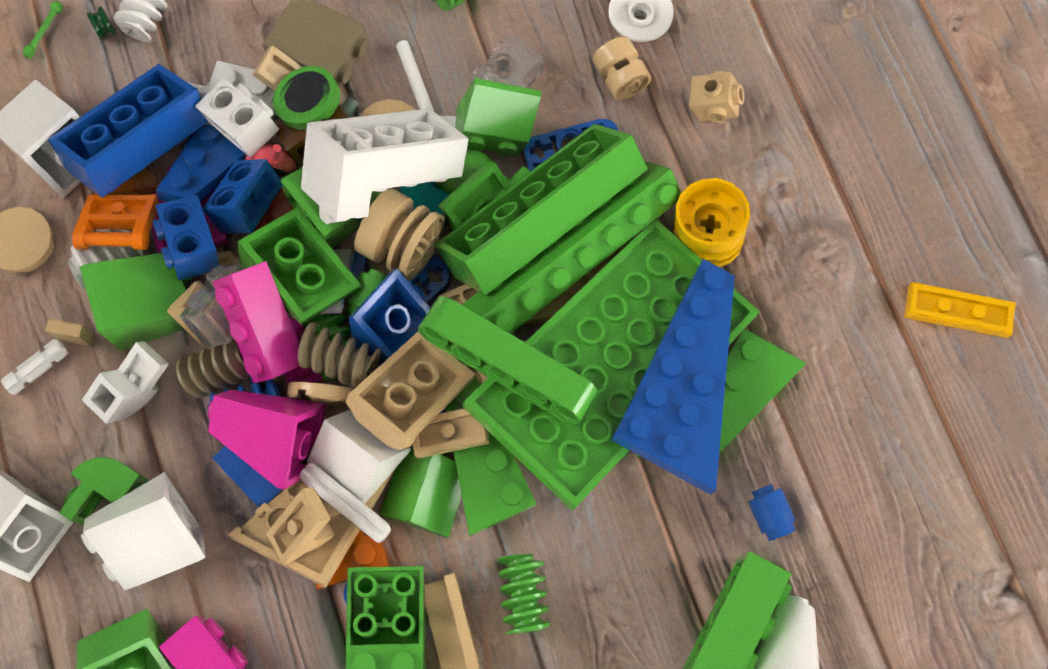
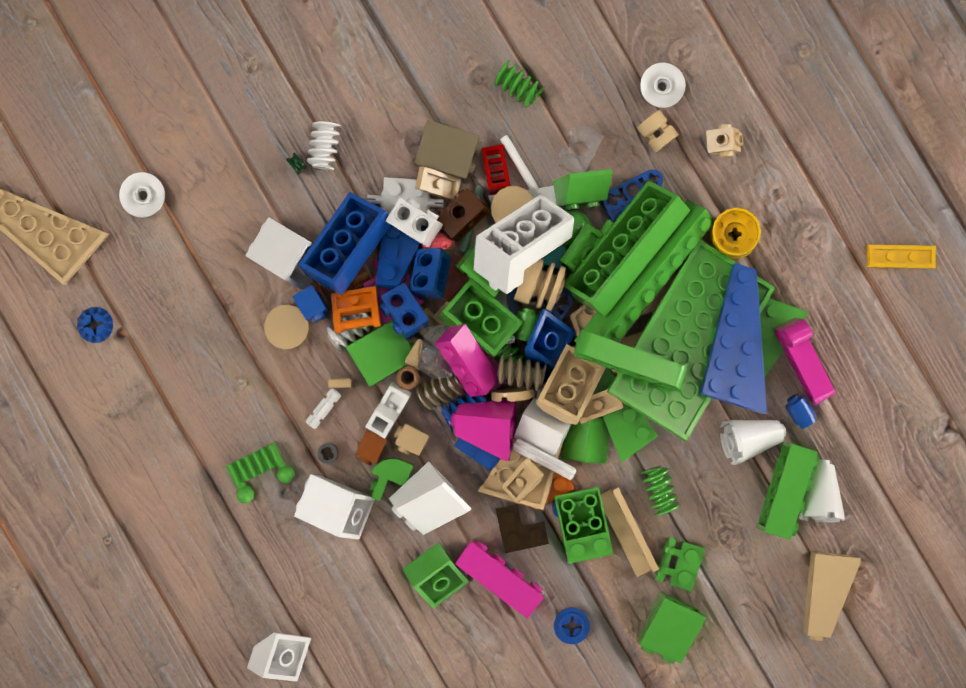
camera: 10 degrees left, 15 degrees up
(10, 440) = (334, 450): none -> dark grey bush
(54, 203) = (311, 304): none -> blue brick
(56, 8) = (259, 155): bright green hinge -> none
(86, 436) = (371, 447): none -> dark orange brick
(151, 438) = (410, 439): none -> tan brick
(171, 341) = (401, 377): none -> medium nougat brick
(277, 625) = (519, 537): none -> dark brown plate
(306, 97) = (456, 199): tile -> none
(380, 58) = (493, 150): none -> red slope
(684, 537) = (750, 437): none -> white cone
(789, 431) = (796, 345): none -> dark pink beam

